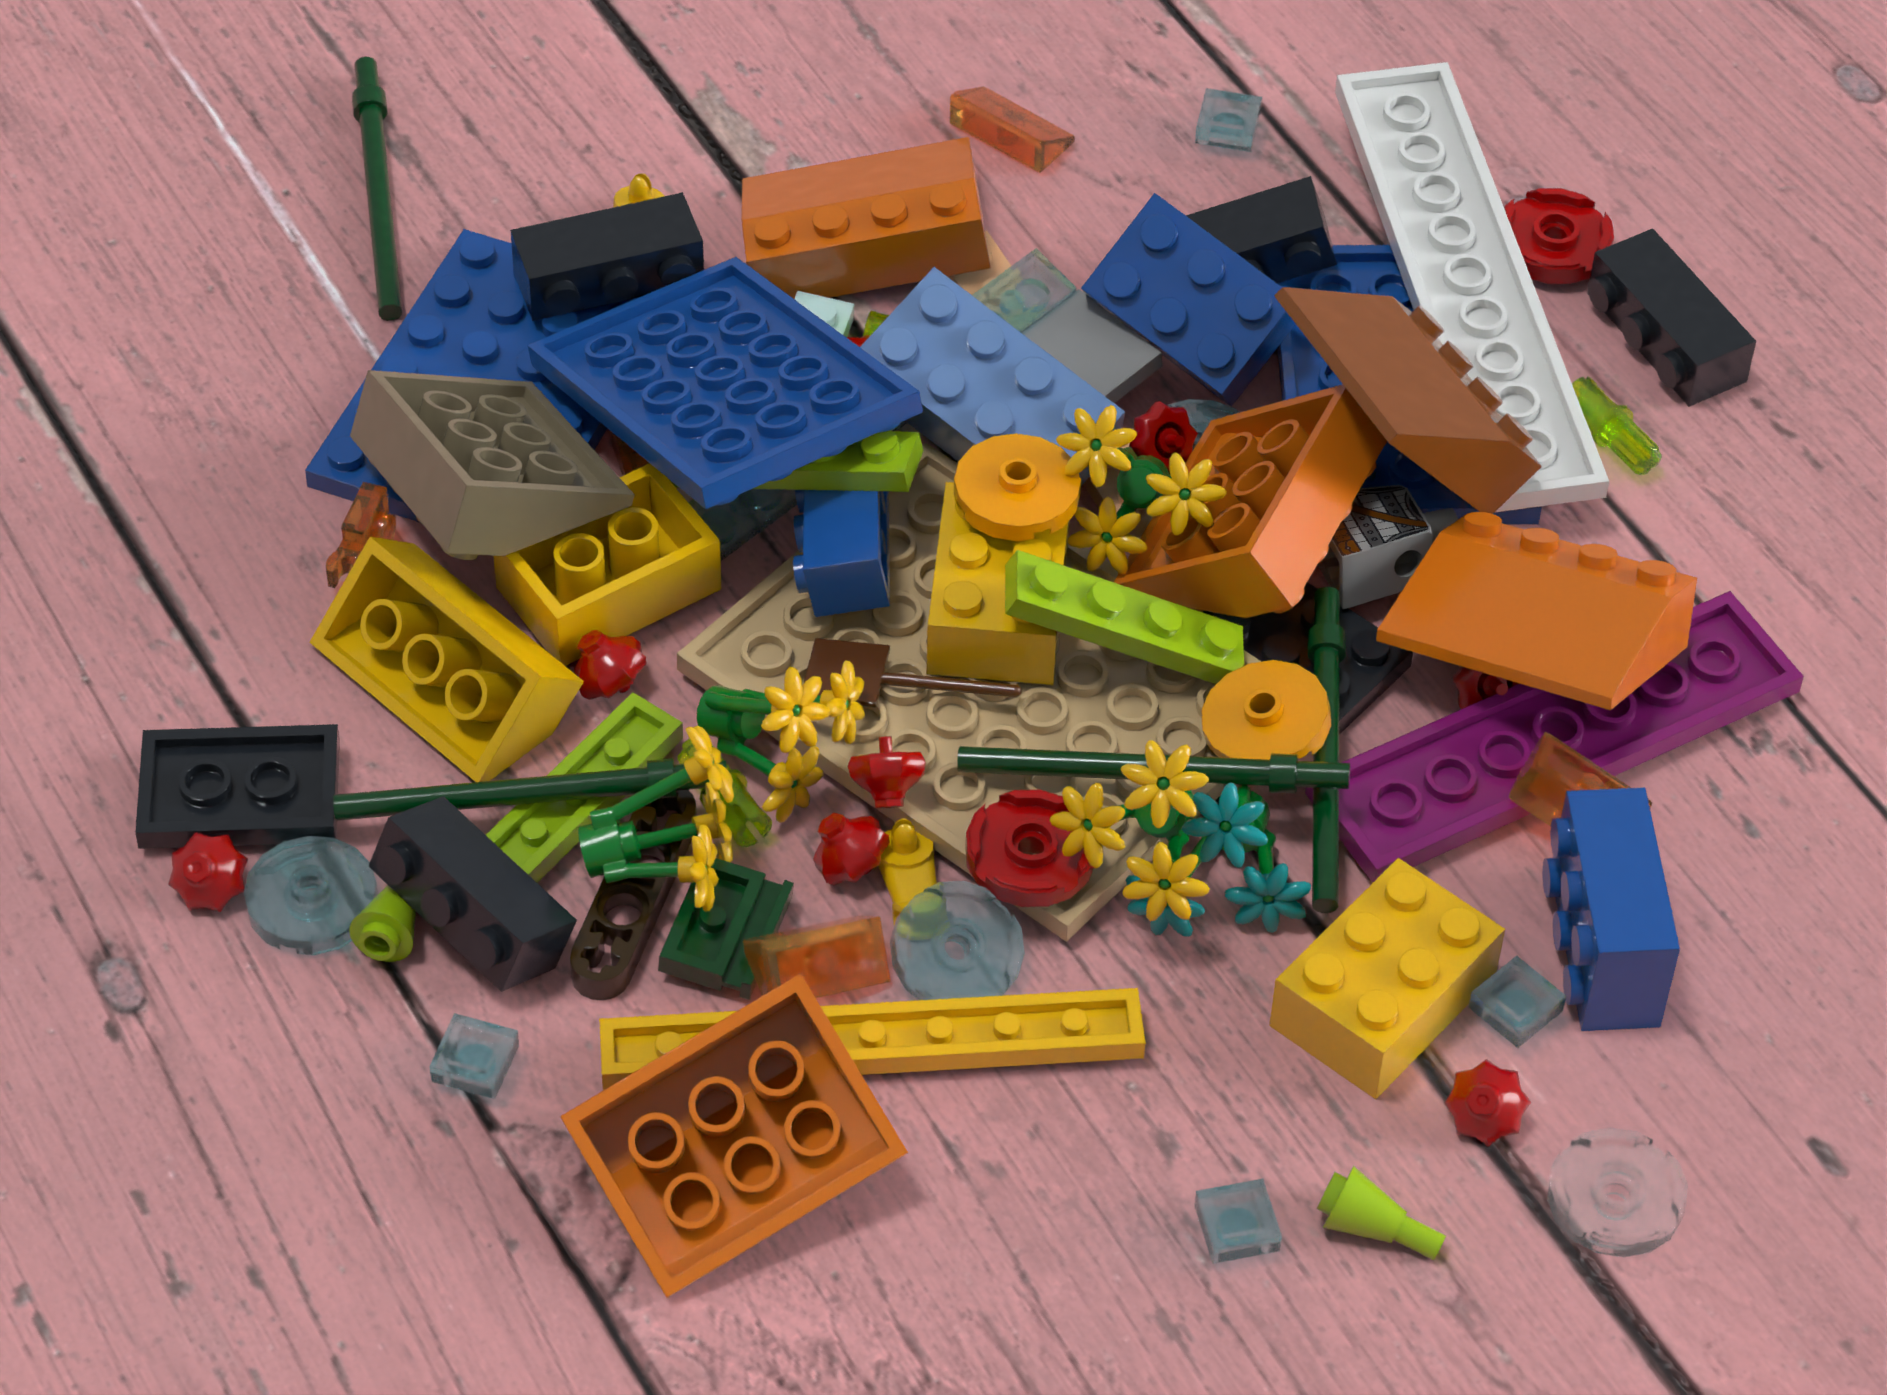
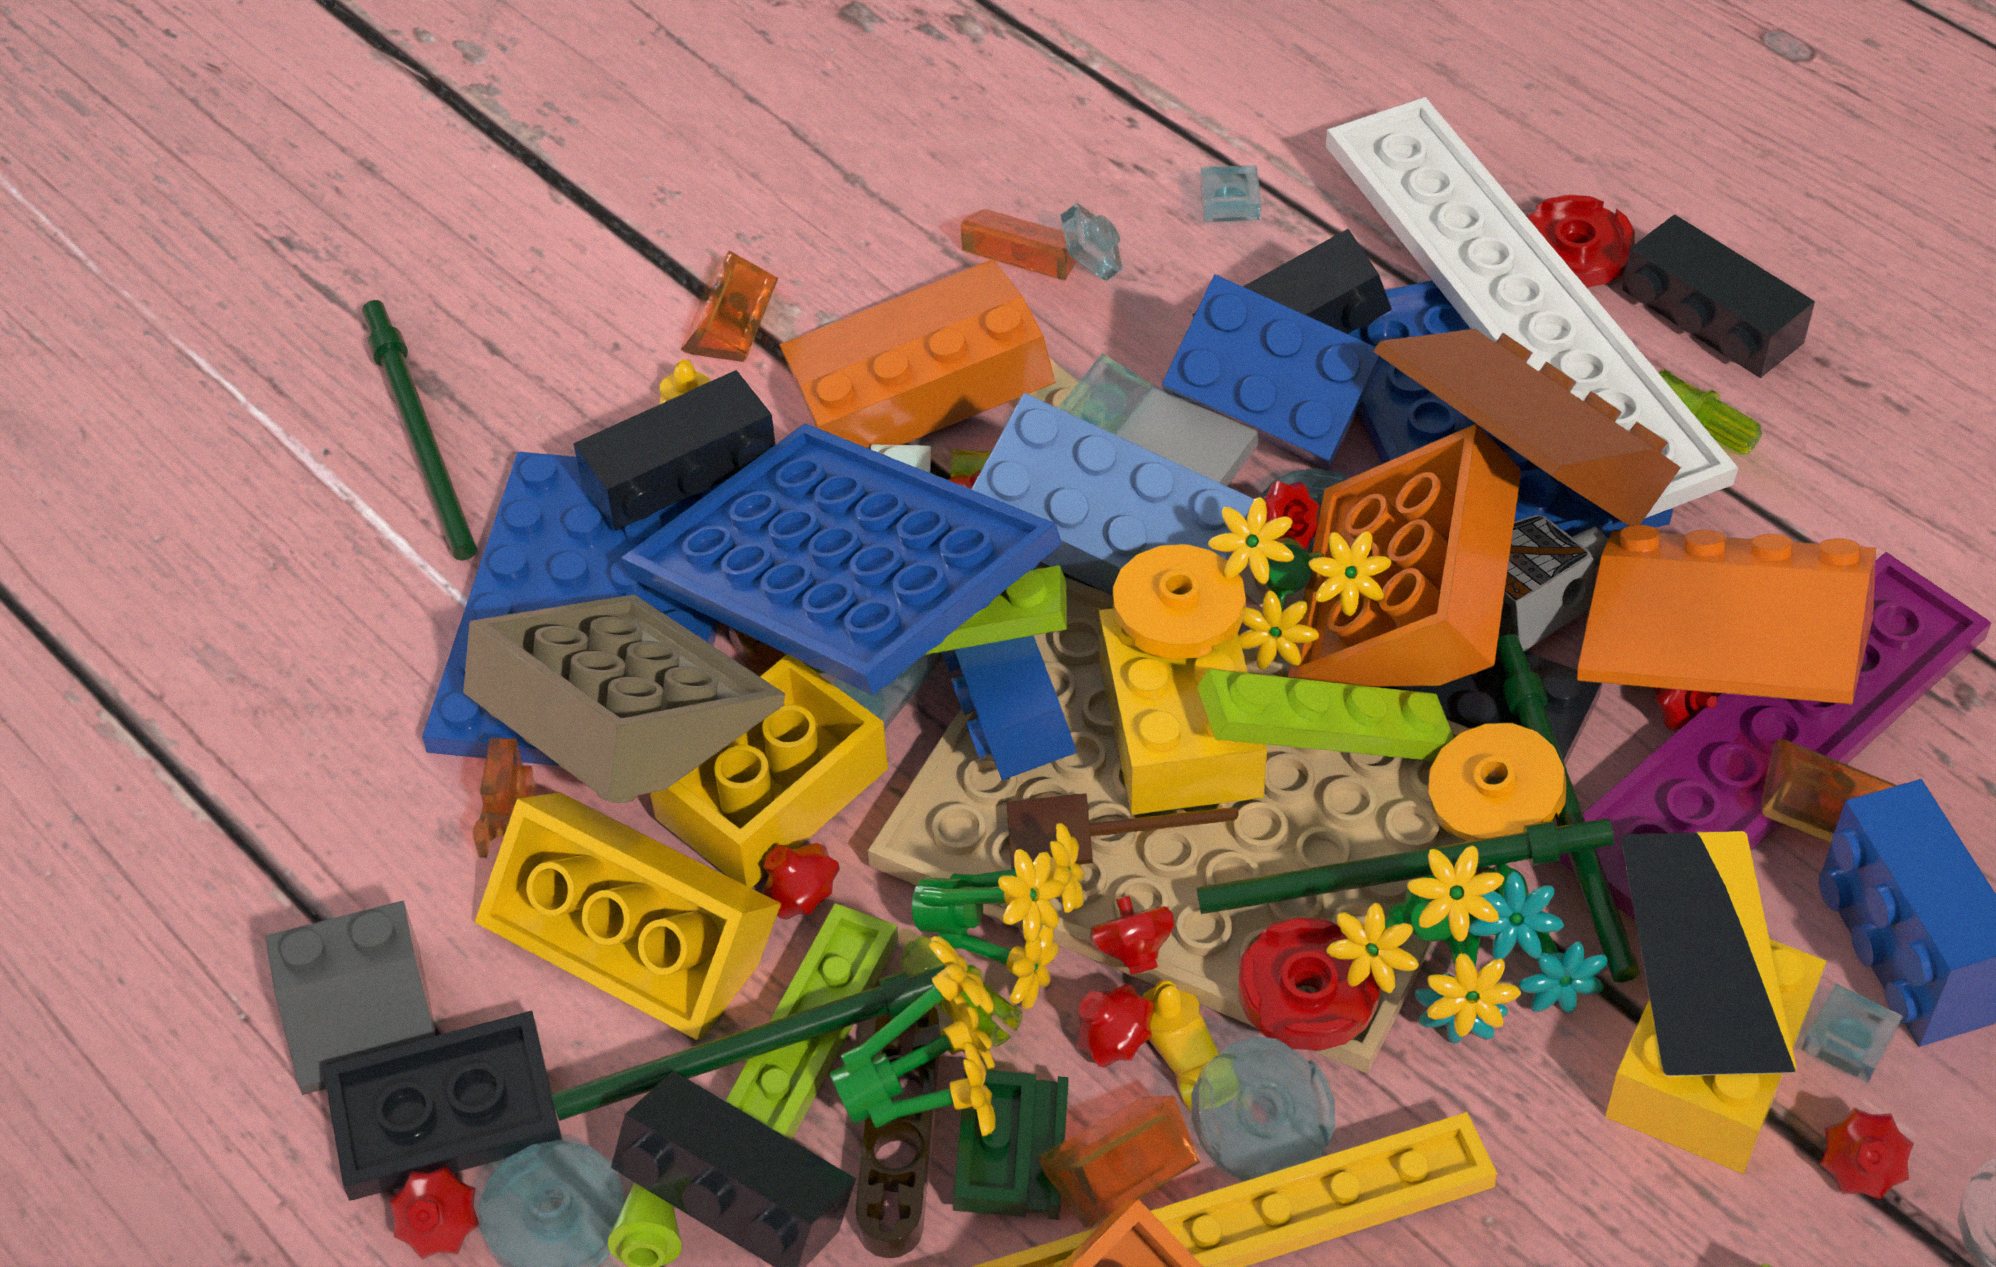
camera: 10 degrees left, 0 degrees up
(183, 669) = (349, 988): none -> dark grey slope
(706, 135) = (730, 310): none -> clear orange slope
(1074, 139) = (1092, 241): none -> clear light blue plate
(1394, 896) = (1707, 954): none -> black sticker

